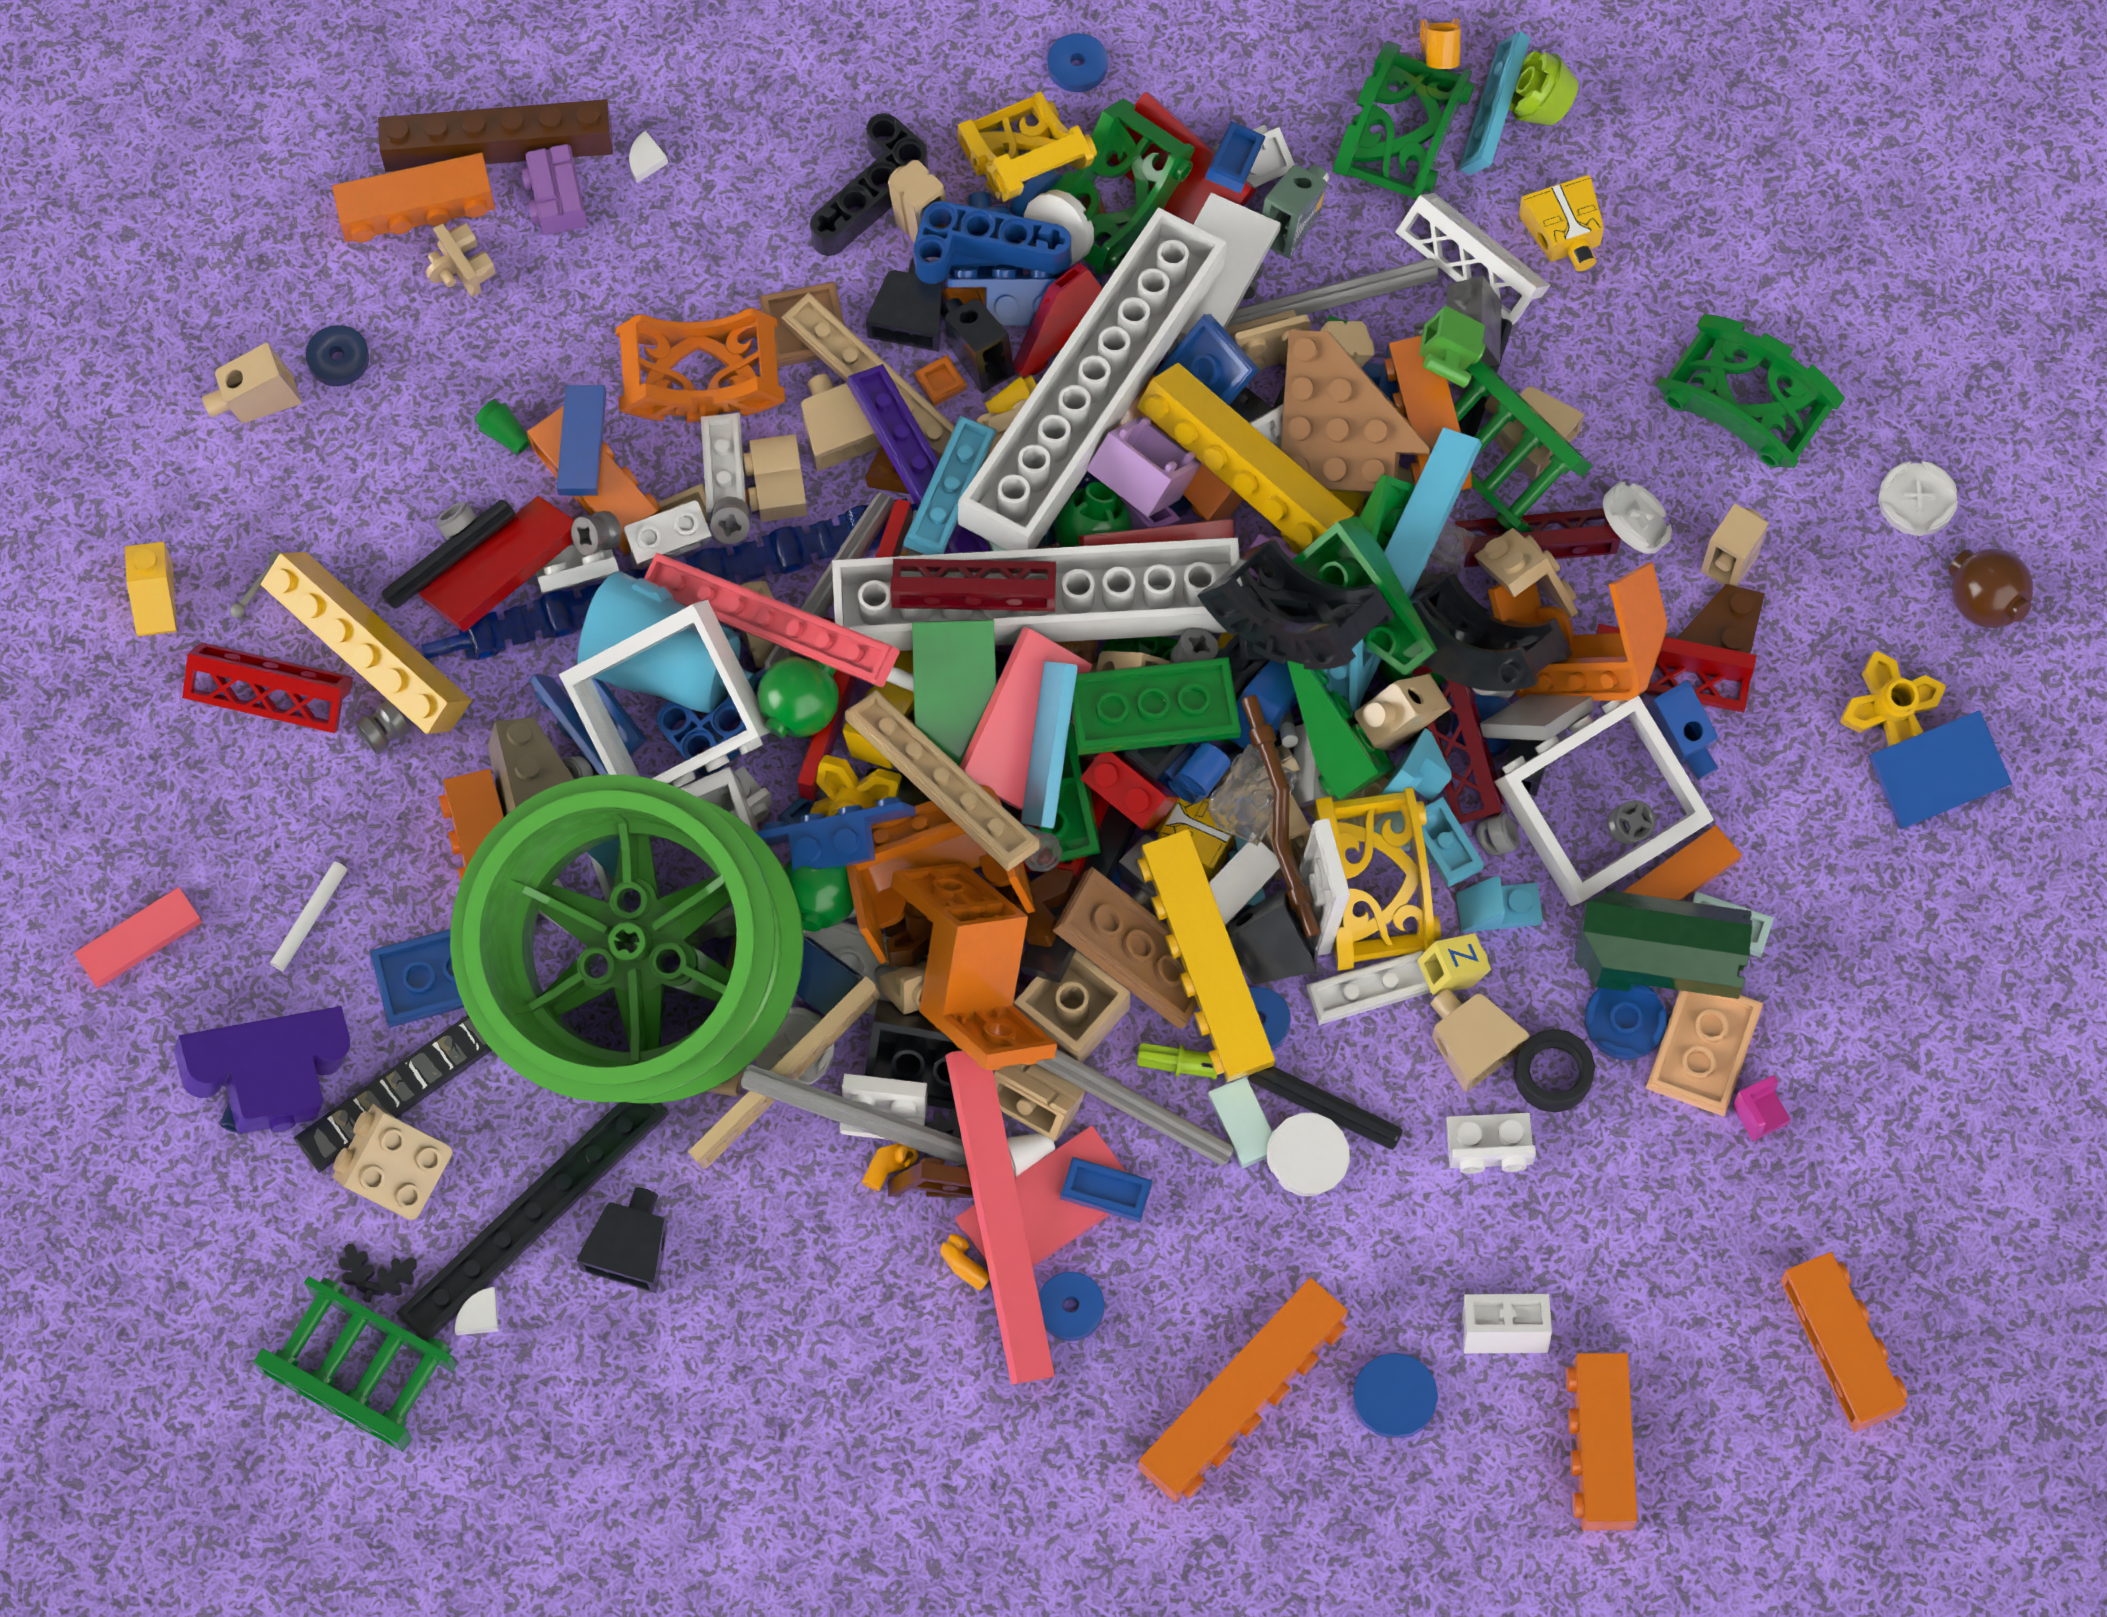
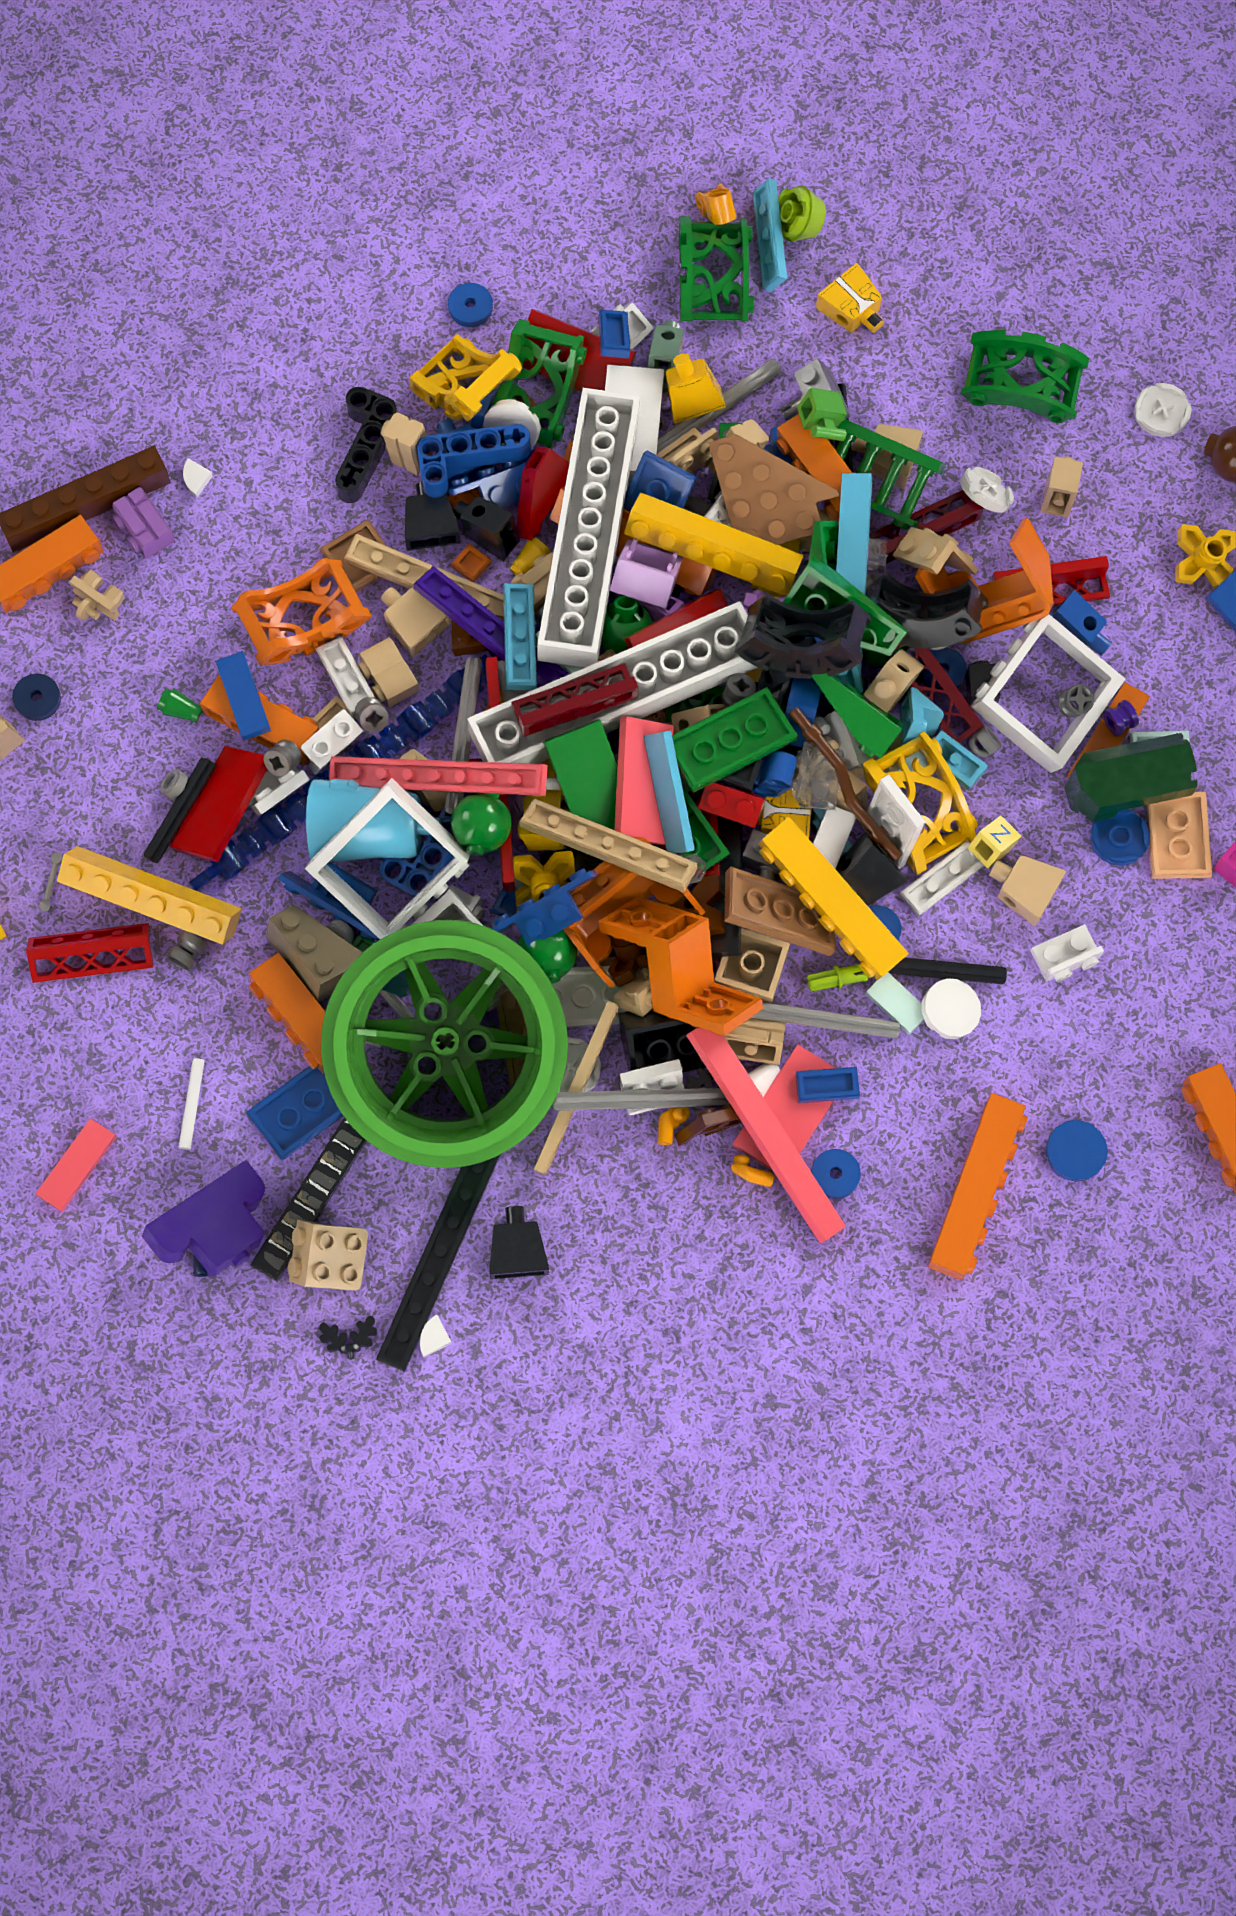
camera: 25 degrees left, 5 degrees up
(354, 1404) = (376, 1434): green fence -> none
(824, 977) = (580, 1013): dark blue brick -> none
(1308, 260) = (692, 389): none -> yellow torso
(1478, 244) = (797, 337): white fence -> none
(1497, 906) = (1004, 790): medium azure slope -> none
(1506, 1323) = (1131, 1073): white hinge -> none
(1537, 717) = (982, 651): light grey tile -> none
(1563, 1041) = (1078, 908): black tyre -> none
(1687, 867) = (1121, 718): none -> dark purple wheel
(1727, 620) = (1074, 539): reddish brown wing -> none

